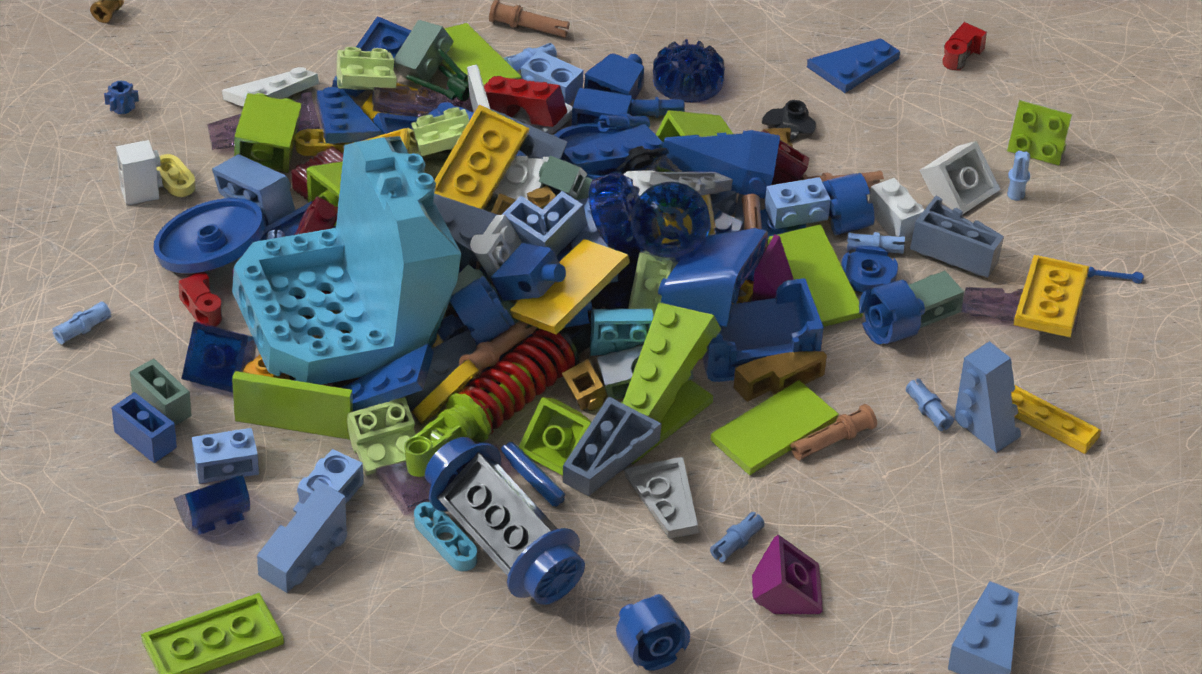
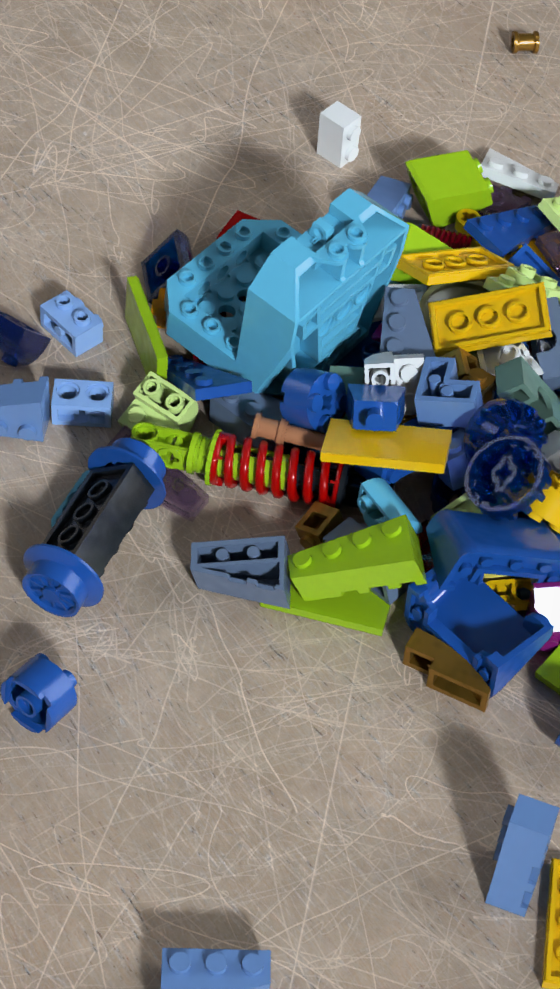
camera: 60 degrees right, 5 degrees up
(81, 322) = (159, 179): light blue pin -> none
(121, 97) = (426, 94): blue gear -> none
(144, 427) = (62, 259): blue brick -> none
(161, 390) = (105, 253): sand green brick -> none
(176, 176) = (365, 162): light yellow plate -> none
(209, 235) = (294, 202): blue dish -> none
(442, 392) = (230, 422): yellow beam -> none
(533, 474) = (194, 533): blue axle -> none
(553, 433) = (250, 519): lime slope -> none
(666, 494) = (231, 645): light grey wing -> none
(737, 536) = (216, 720): medium blue pin -> none
(772, 426) = (380, 696): lime tile -> none
(787, 580) = (182, 781): magenta slope -> none
(844, 428) = (415, 752): nougat pin -> none
(929, 404) = (496, 814): medium blue pin -> none

